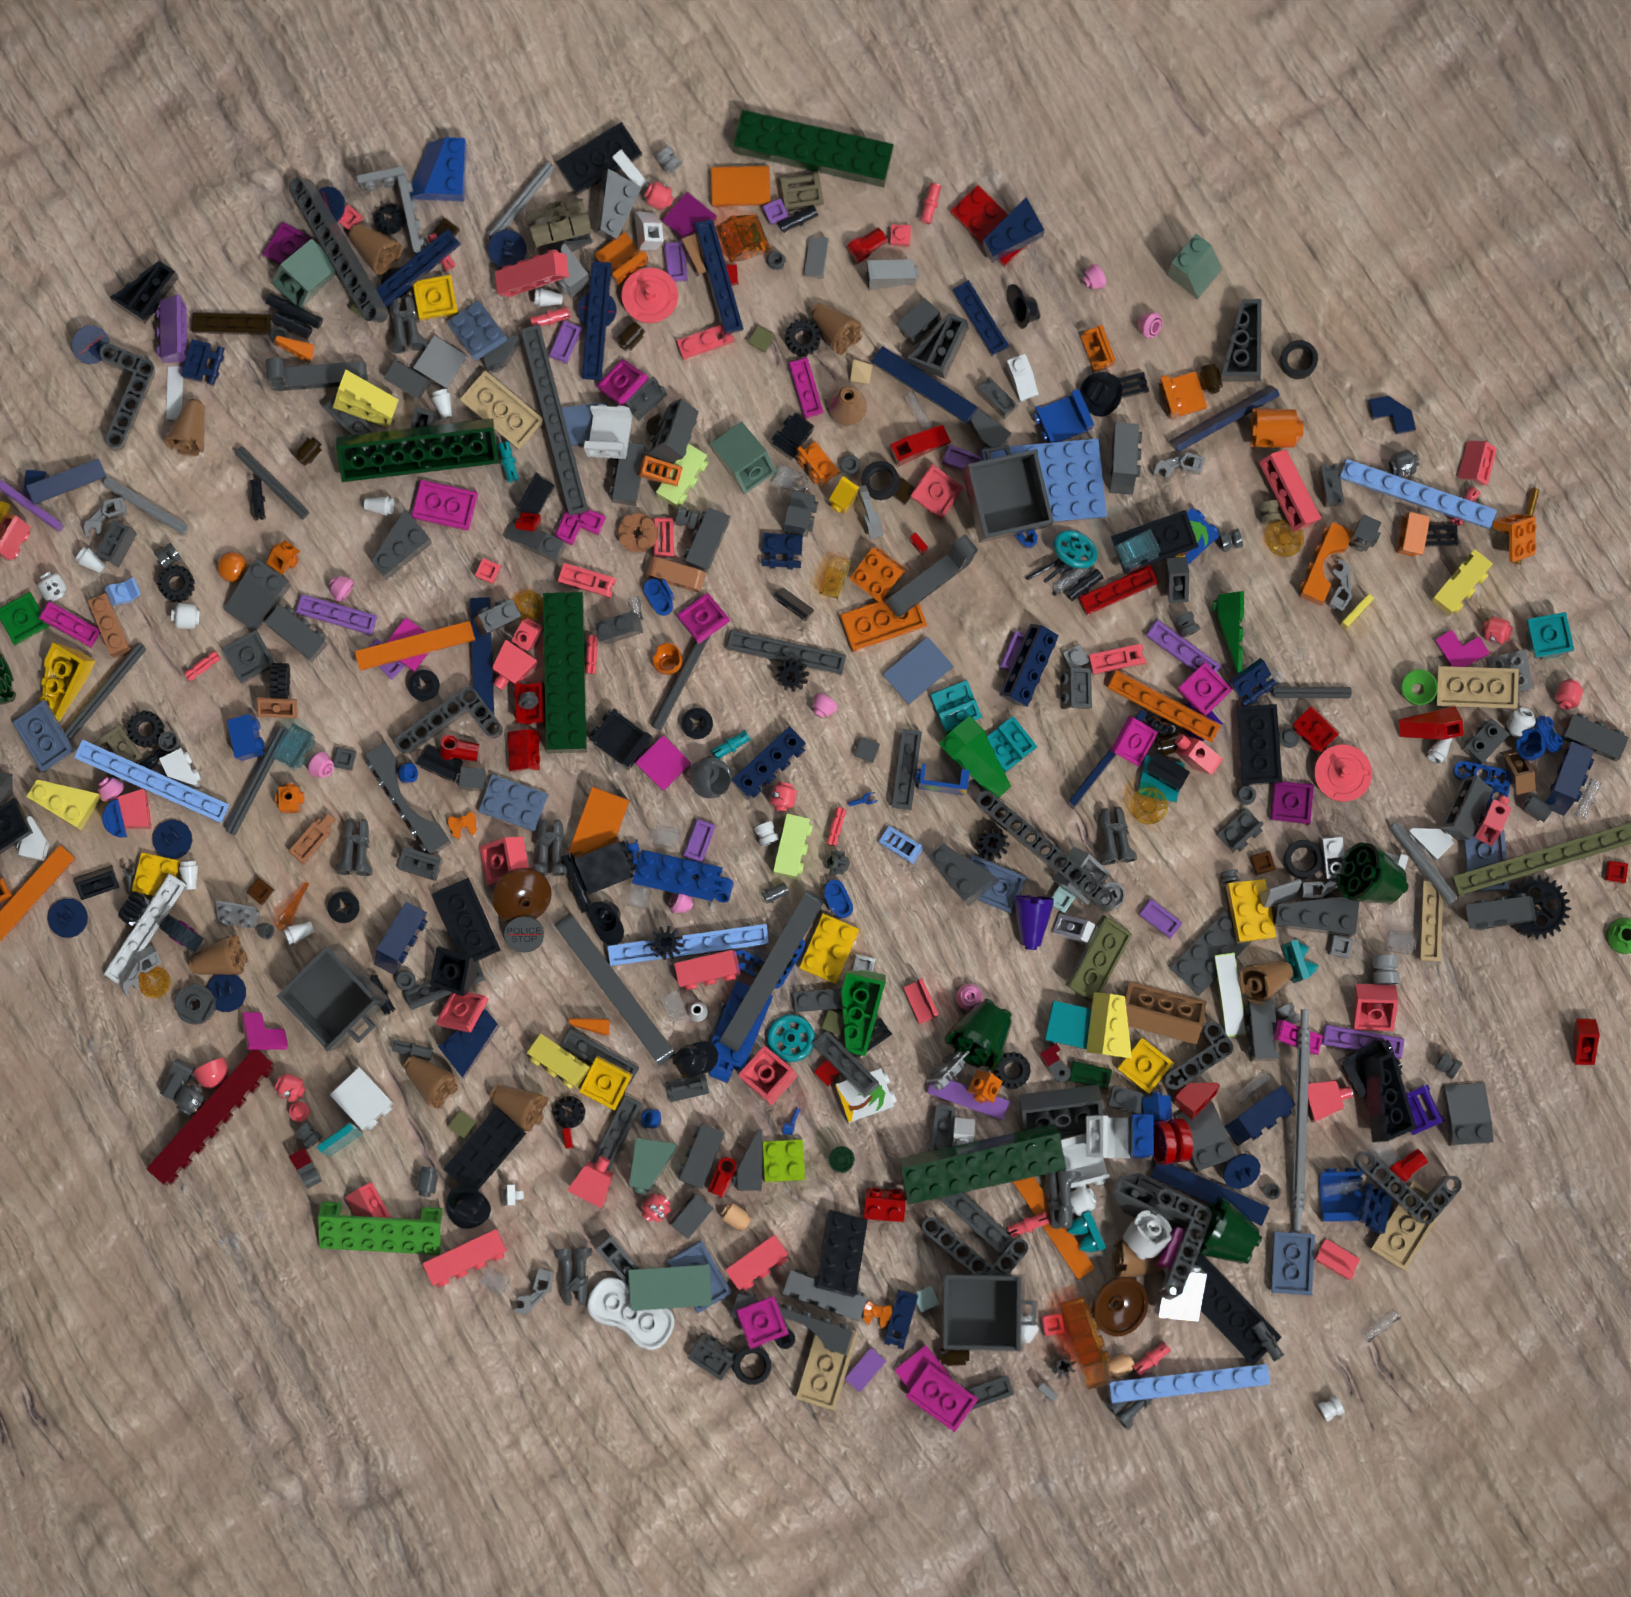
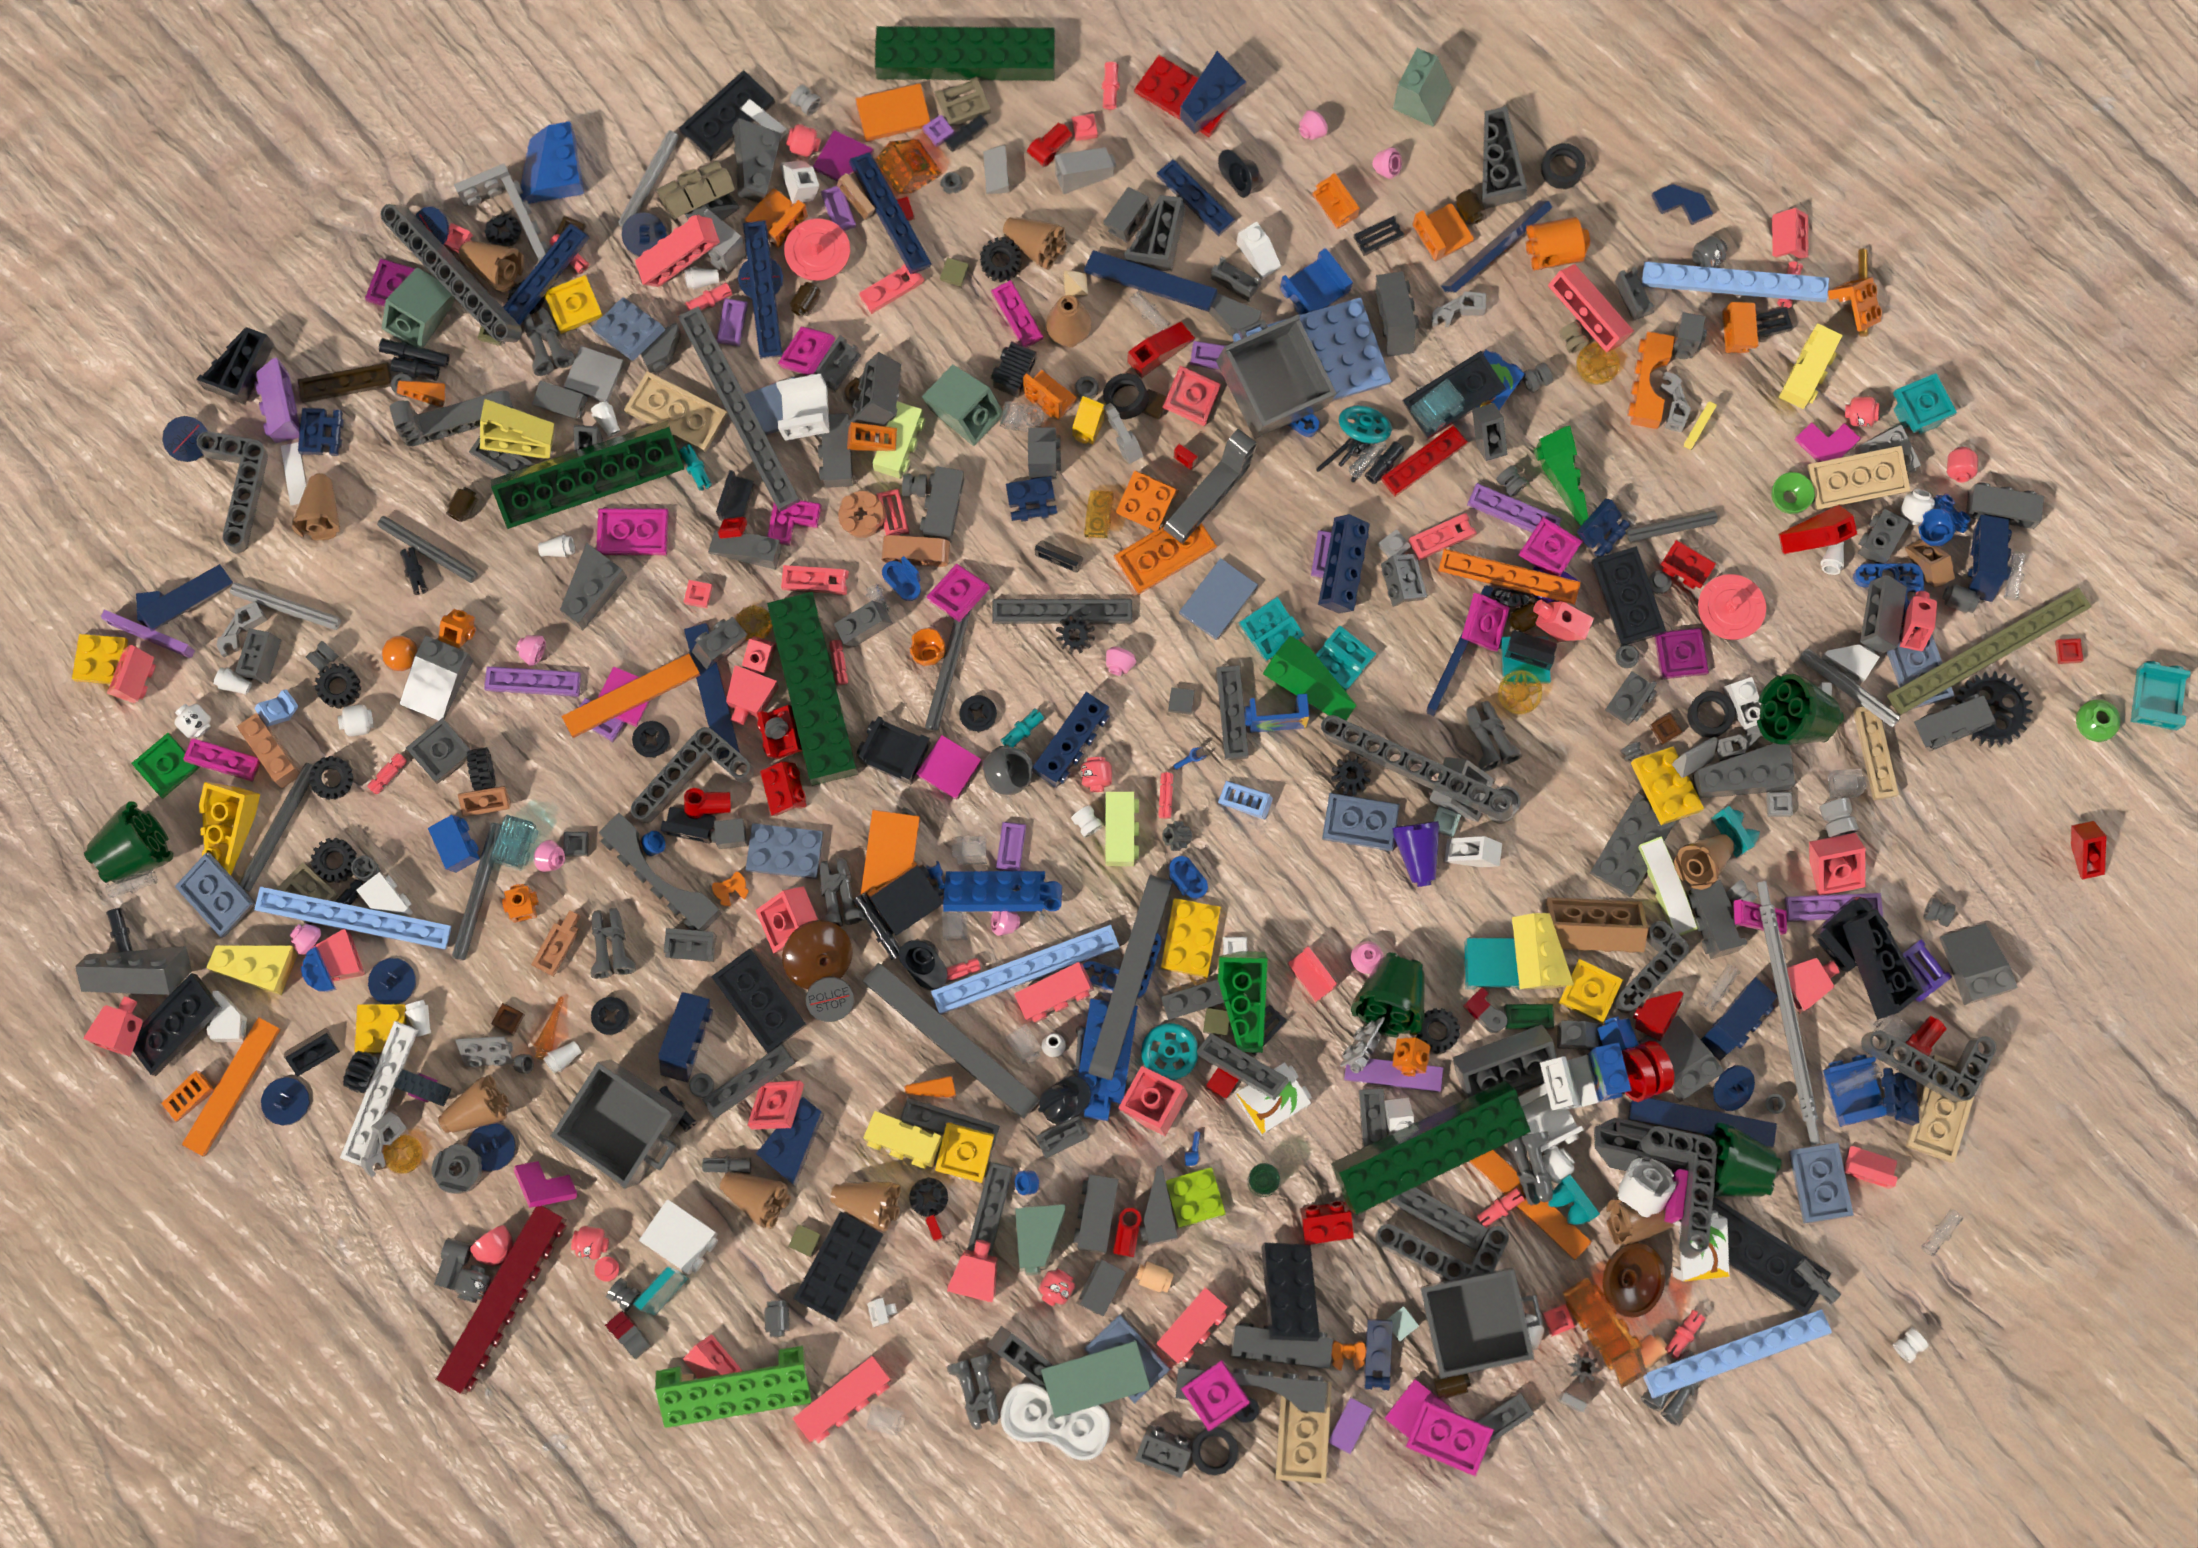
camera: 10 degrees left, 5 degrees down
(129, 873) = (348, 1036): dark grey hand -> none
(144, 664) = (337, 764): none -> black tyre
(296, 632) = (489, 711): dark grey brick -> none
(453, 971) = (755, 1060): black slope -> none
(467, 1207) = (832, 1337): black hat -> none
(531, 1301) = (933, 1433): light grey piece -> none
(637, 933) = (962, 969): none -> coral axle
(666, 950) = (997, 964): black gear -> none
(775, 893) = (1113, 887): dark grey pin -> none
(964, 876) = (1326, 816): dark grey wedge -> none
(1098, 958) = (1506, 878): olive tile -> none
(1101, 393) = (1353, 248): black hat -> none
(1160, 918) = (1564, 818): medium lavender tile -> none

